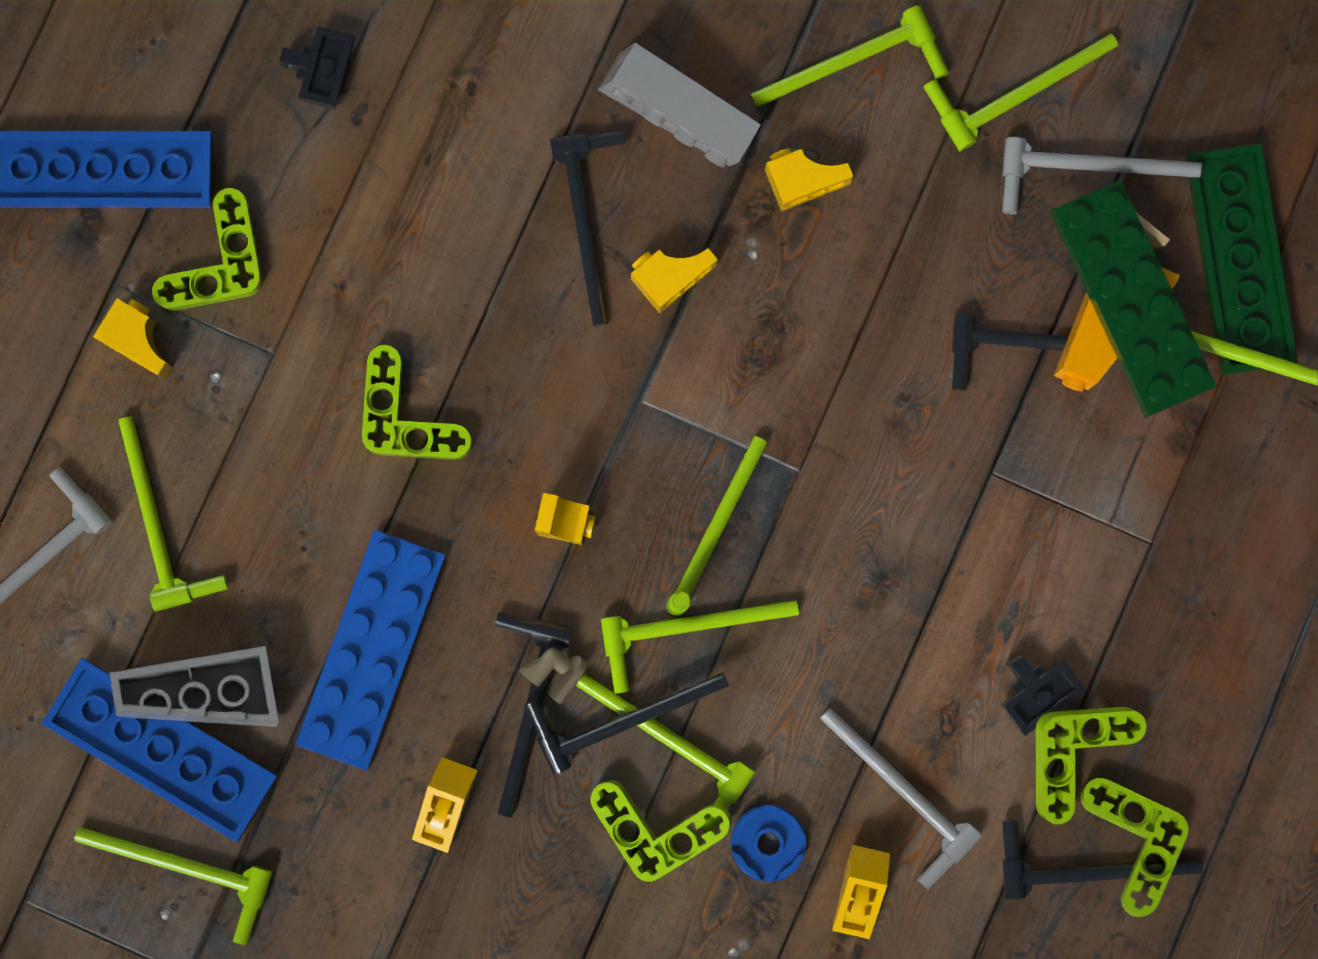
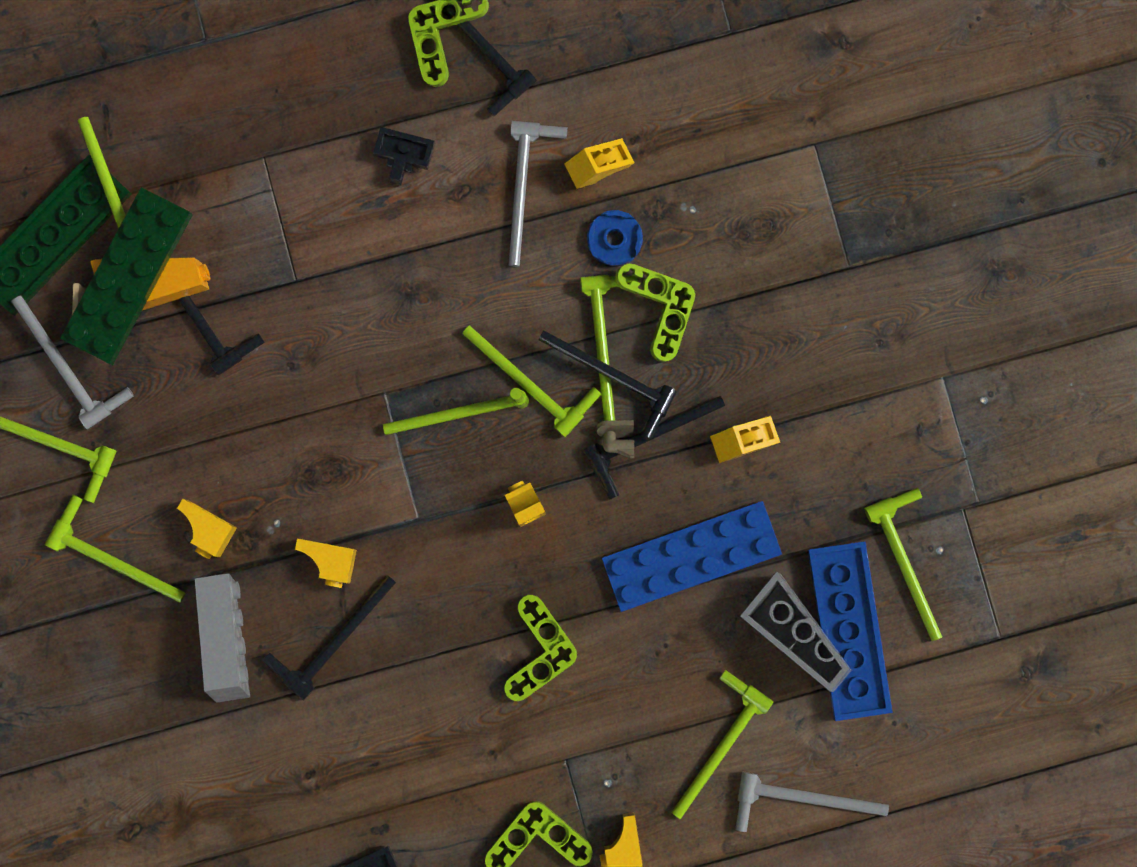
camera: 125 degrees left, 0 degrees up
(1070, 739) = (417, 113): lime beam -> none

